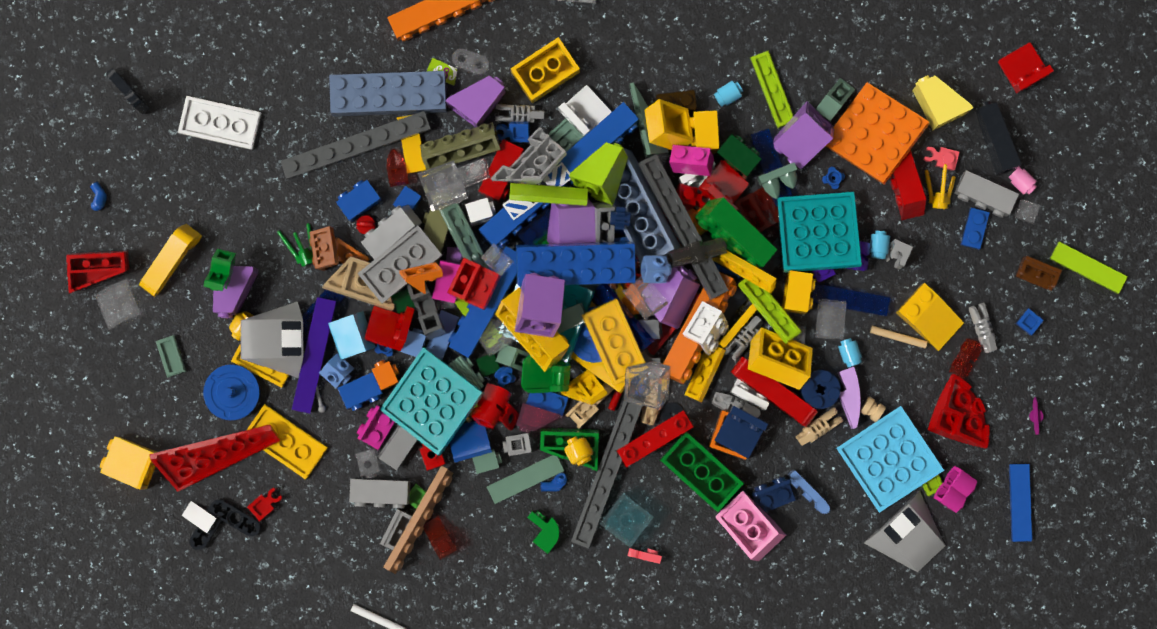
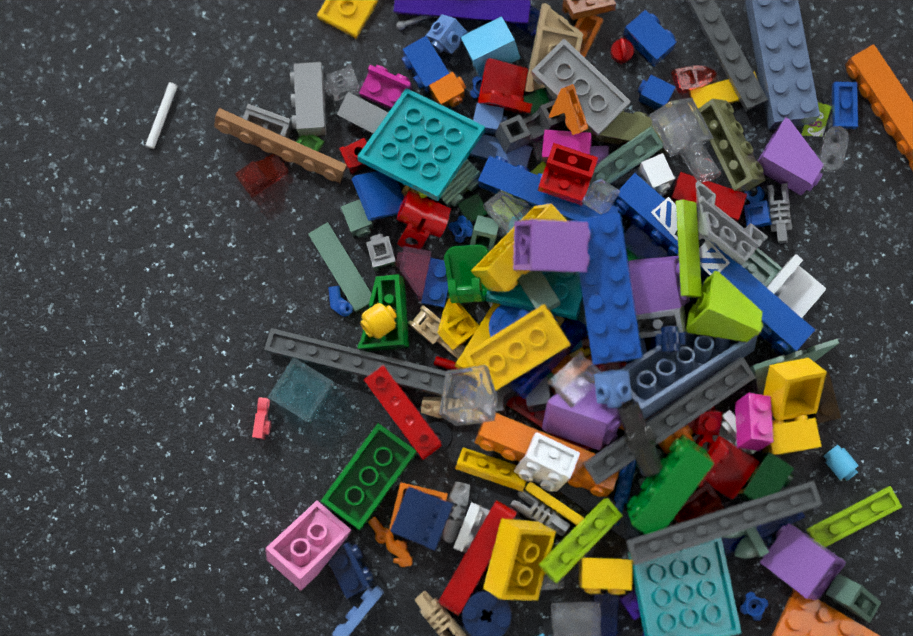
camera: 90 degrees right, 5 degrees down
(390, 230) = (622, 74): light grey brick -> none
(434, 47) = (845, 104): none -> blue plate
(545, 70) = (837, 236): yellow brick -> none
(549, 534) = (280, 301): green brick -> none
(747, 271) = (624, 505): yellow tile -> none
(759, 456) = (398, 547): none -> orange animal
(769, 195) = (723, 522): none -> dark grey plate

